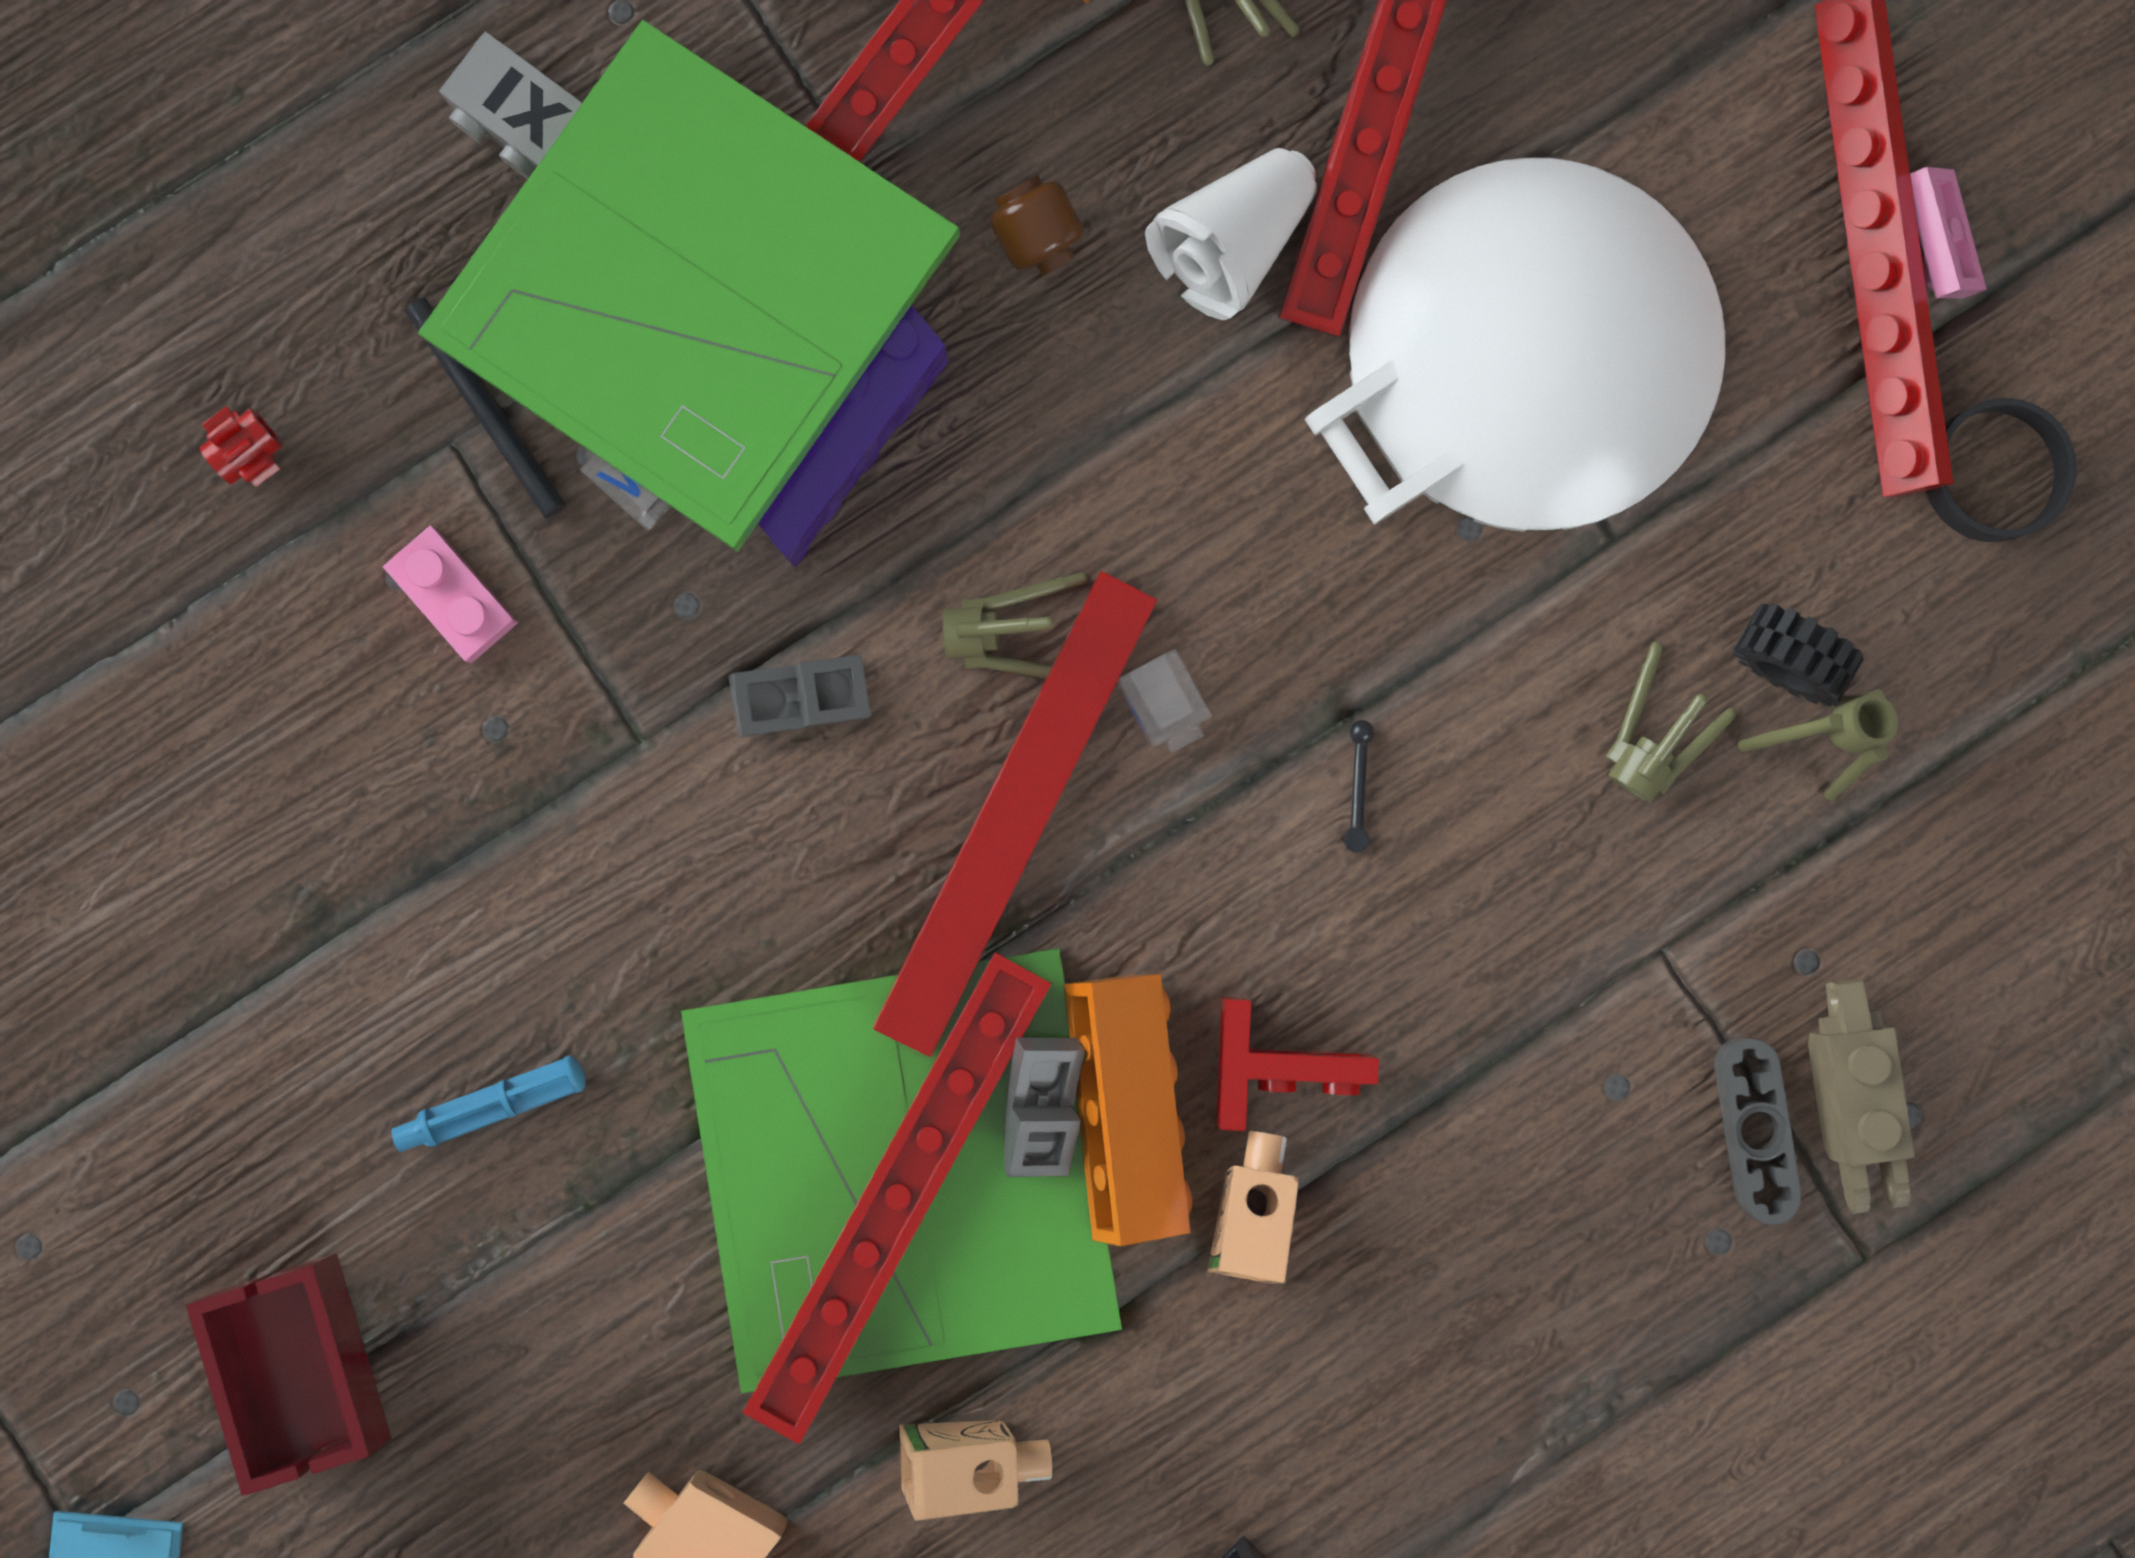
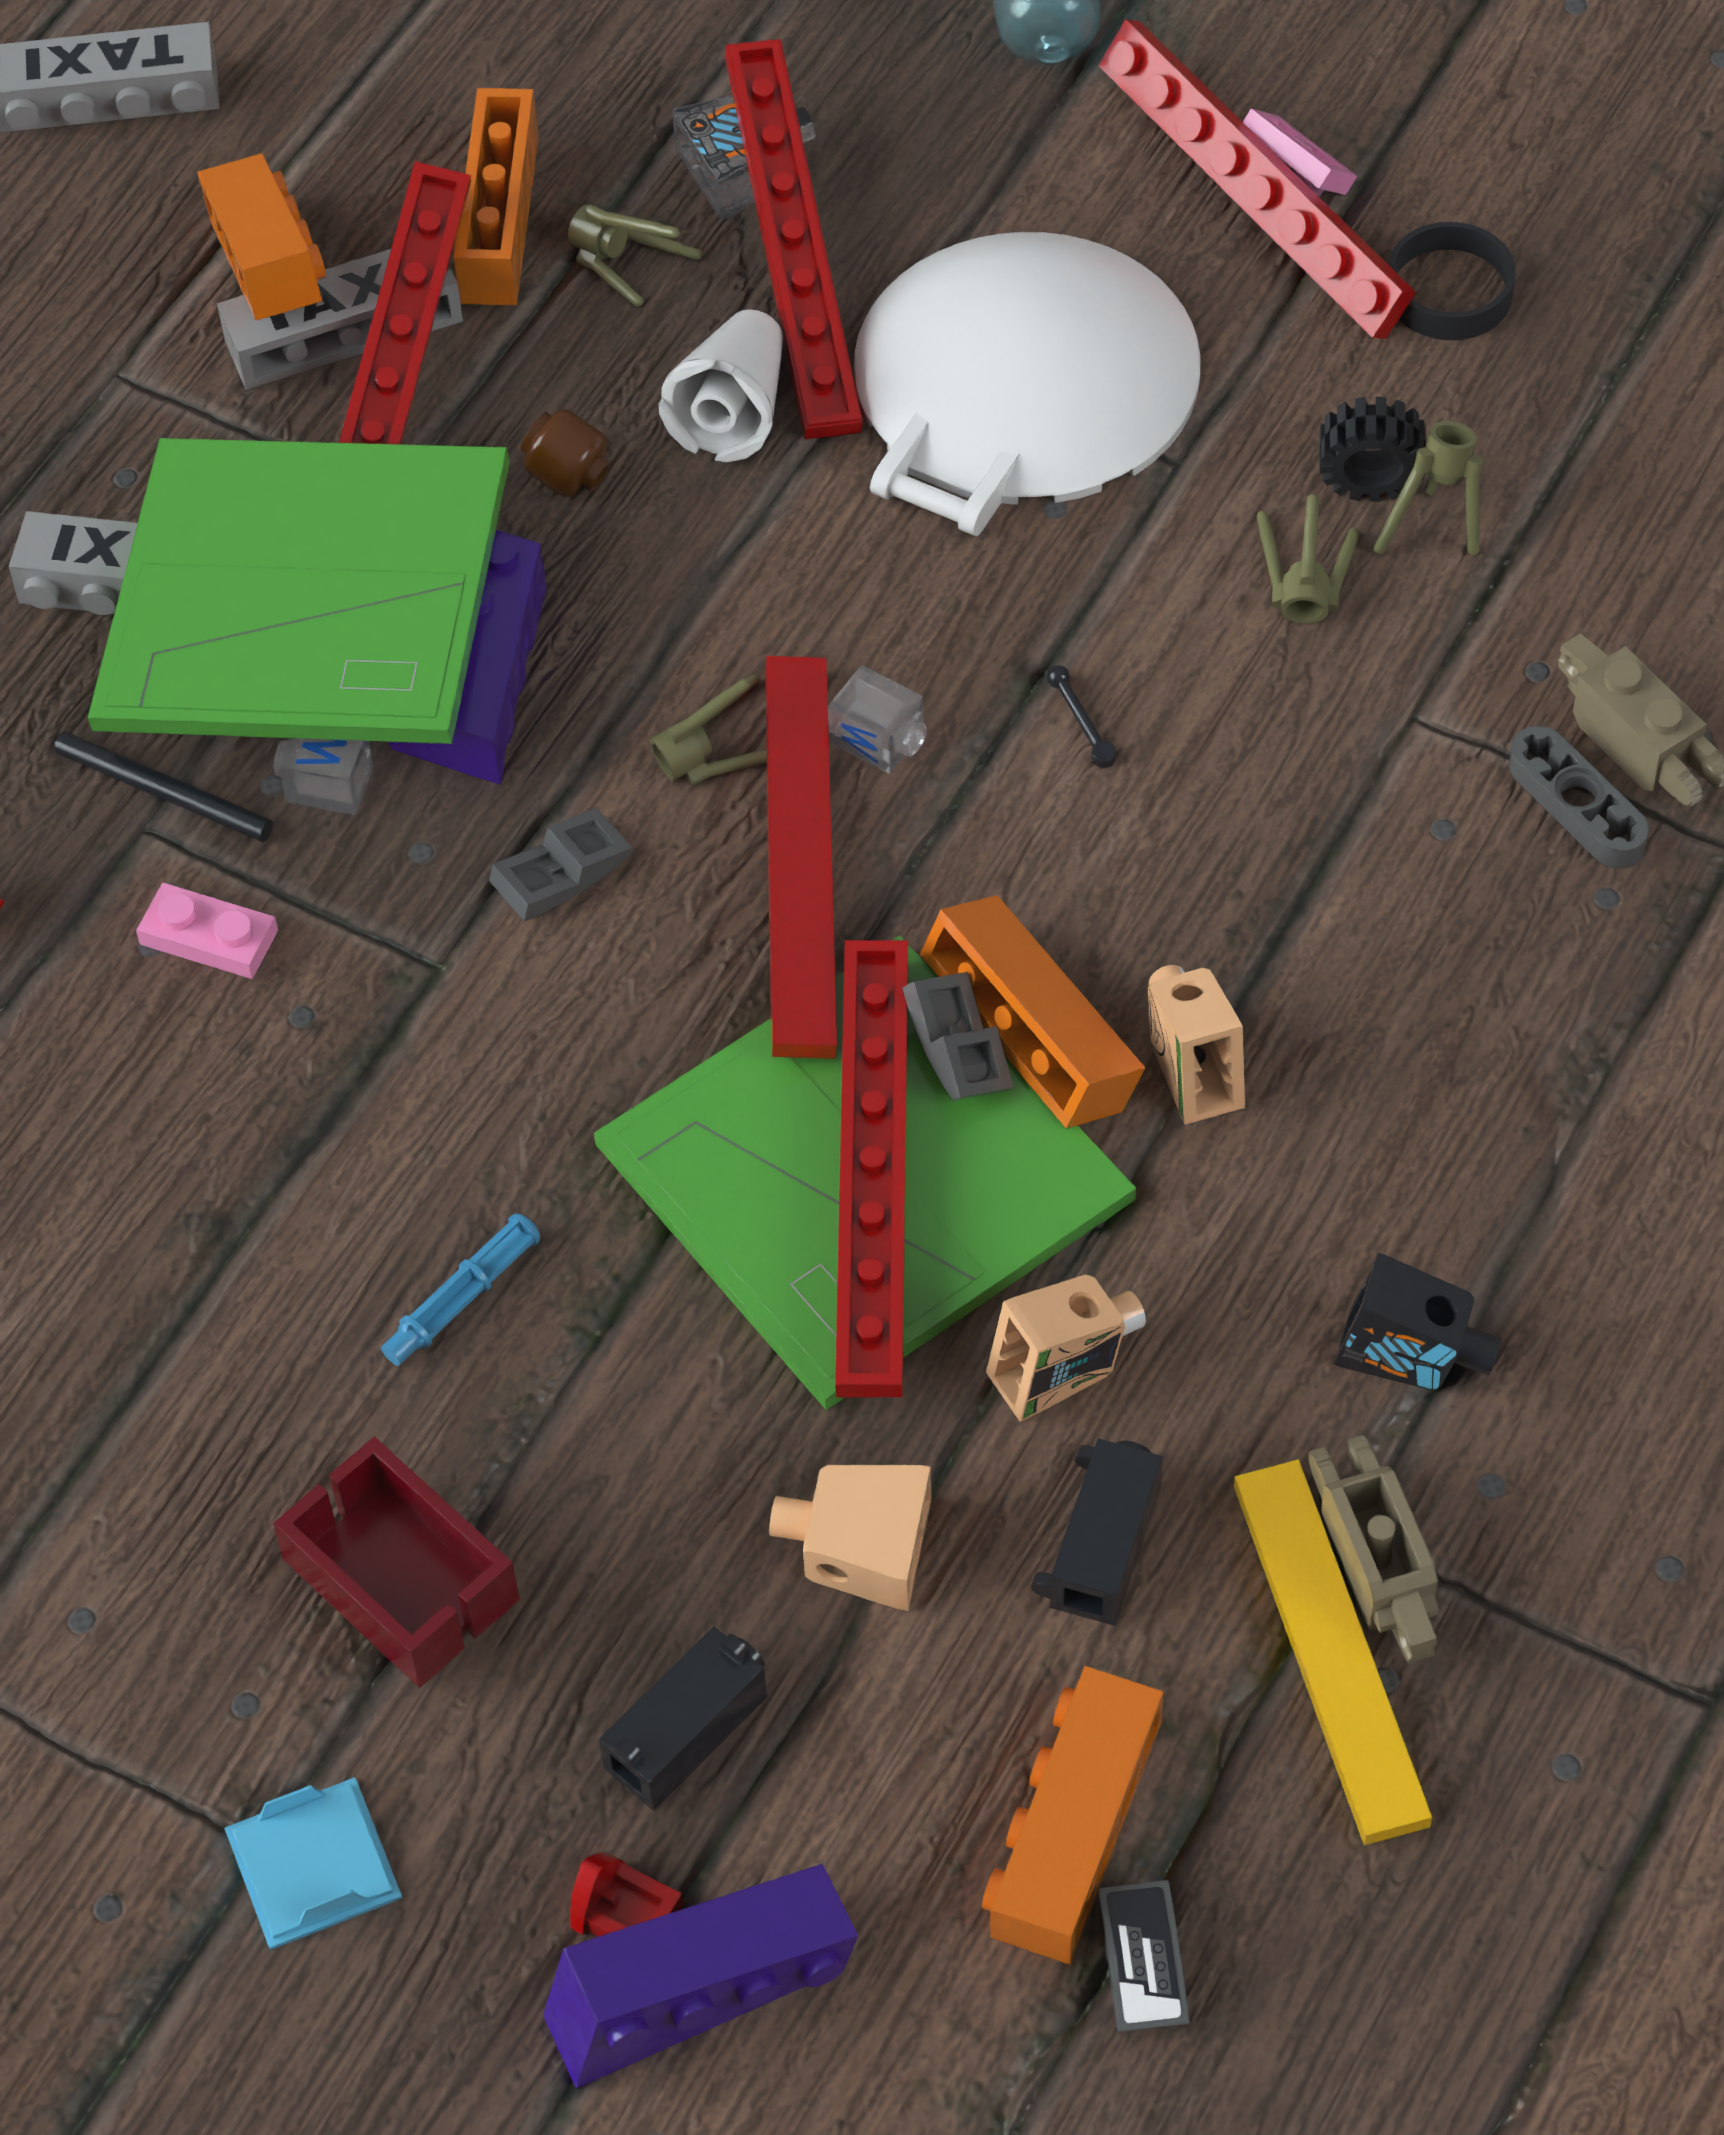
camera: 25 degrees left, 30 degrees down
(1276, 1068) = (1142, 928): red bracket -> none

